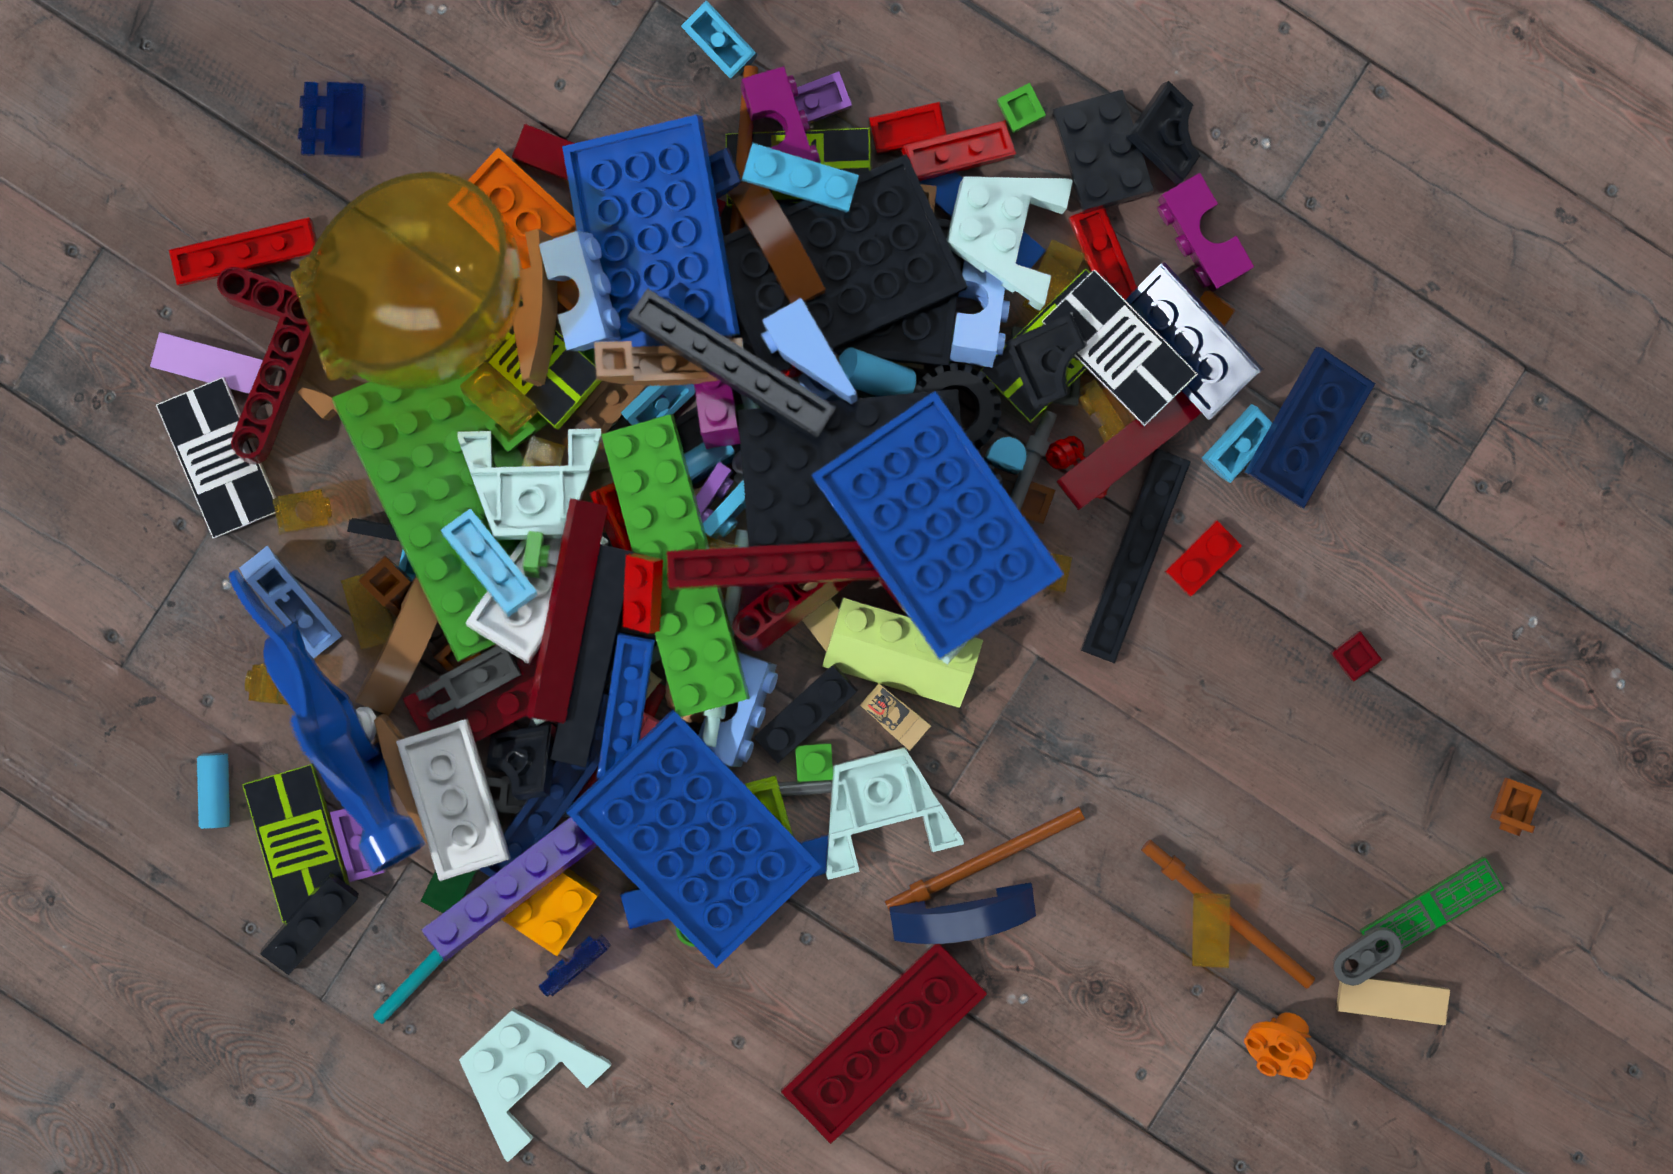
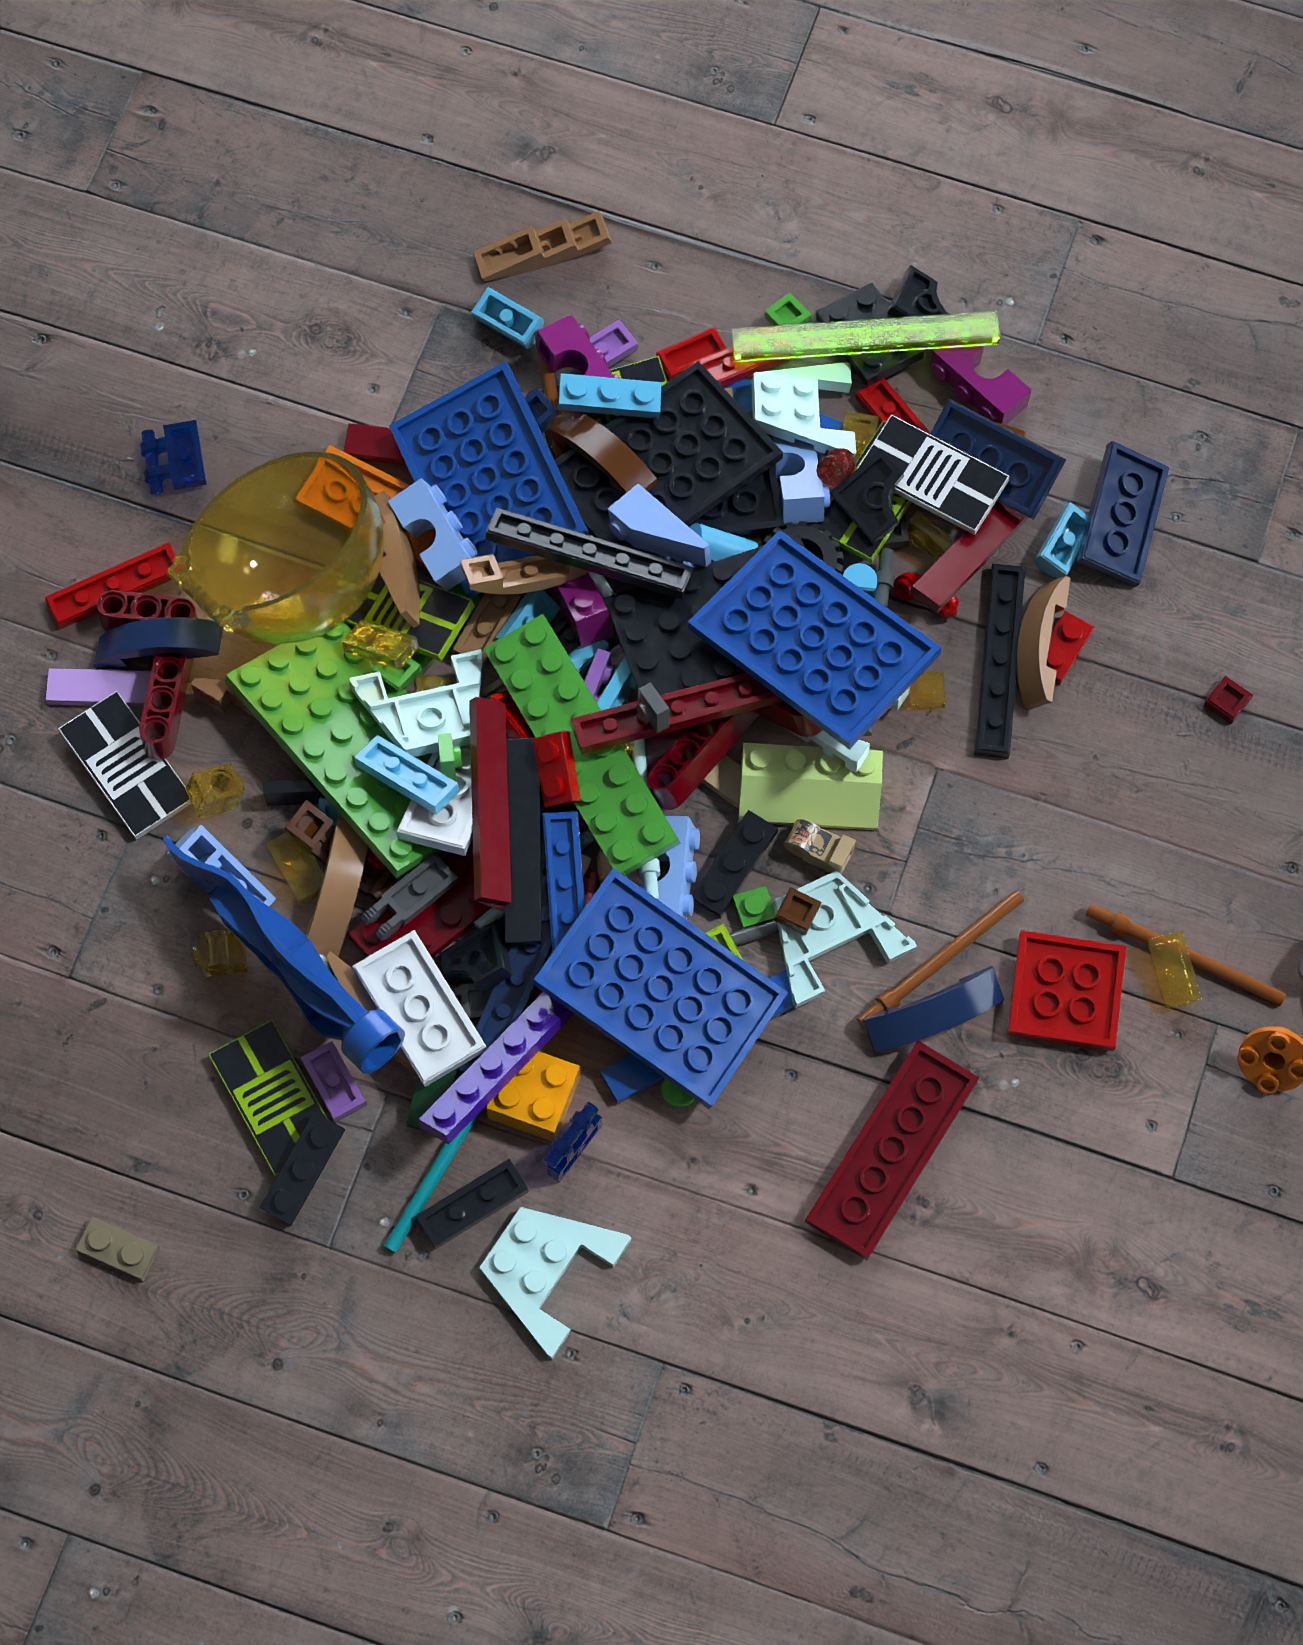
camera: 15 degrees left, 20 degrees down
(119, 955) = (117, 1249): none -> dark tan plate
(213, 790) = (181, 1065): medium azure brick -> none
(266, 336) = (158, 636): none -> dark blue slope
(465, 996) = (472, 1204): none -> black plate
(749, 568) = (652, 708): none -> dark grey plate
(853, 785) = (797, 911): none -> reddish brown tile
(1022, 318) = (830, 473): none -> clear red bush
(1095, 162) = (865, 336): none -> clear neon green tile
(1099, 924) = (1067, 990): none -> red plate
(1176, 546) = (1034, 677): none -> medium nougat slope

